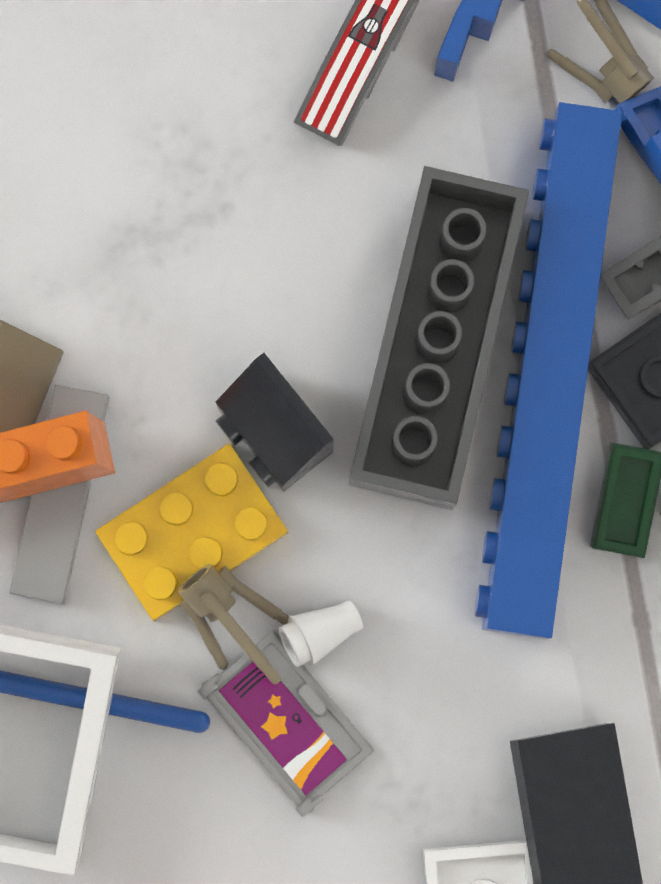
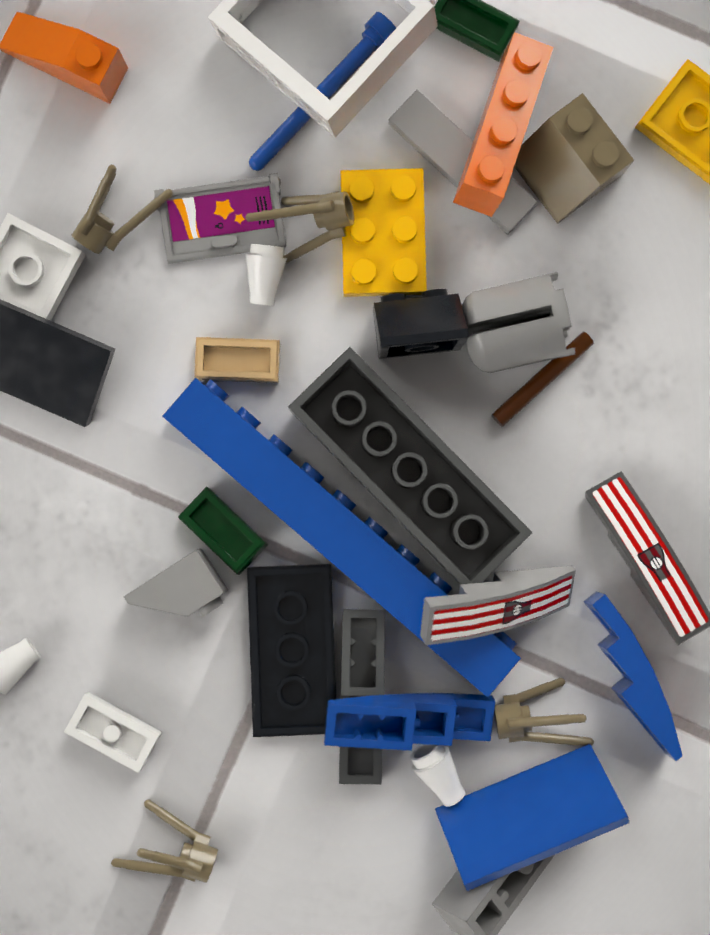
camera: 115 degrees right, 5 degrees up
(225, 302) = (521, 343): none -> light grey cylinder
(245, 263) = (541, 380): none -> reddish brown bar
(387, 854) = (95, 228): none -> dark tan plant
(432, 603) = (237, 360): none -> tan tile
(524, 155) = (497, 606): none -> slope

